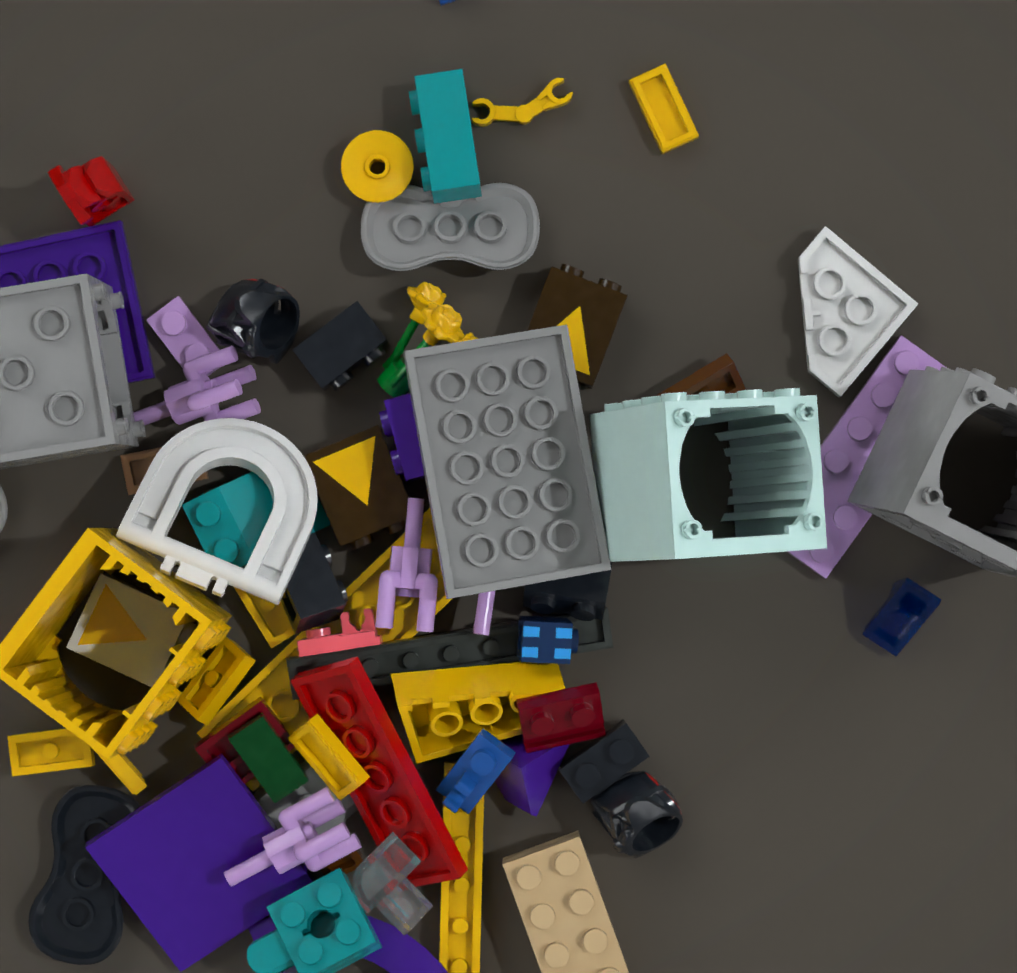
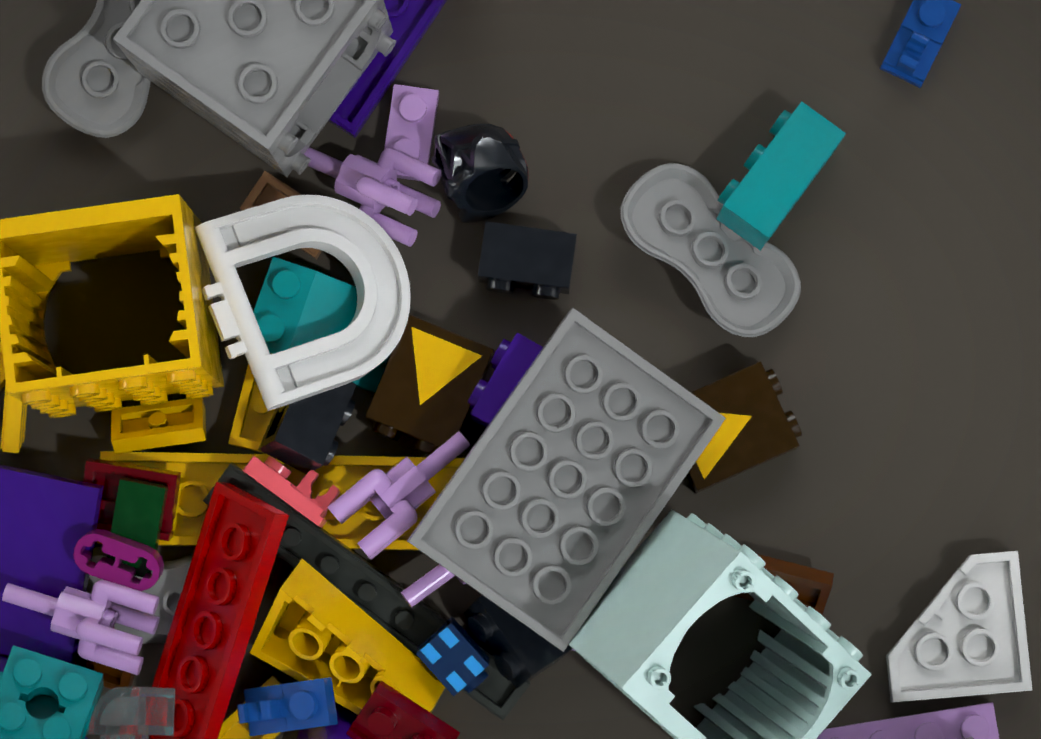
camera: 50 degrees right, 5 degrees down
(128, 630) = (128, 310): white brick -> none
(274, 780) = (122, 549): none -> magenta beam
(328, 757) = (184, 575): yellow tile -> none
(372, 148) = (705, 124): yellow piece -> none
(441, 324) = (625, 313): yellow plant -> none
(524, 113) = (862, 219): yellow piece -> none
(663, 109) = (978, 326): yellow tile -> none

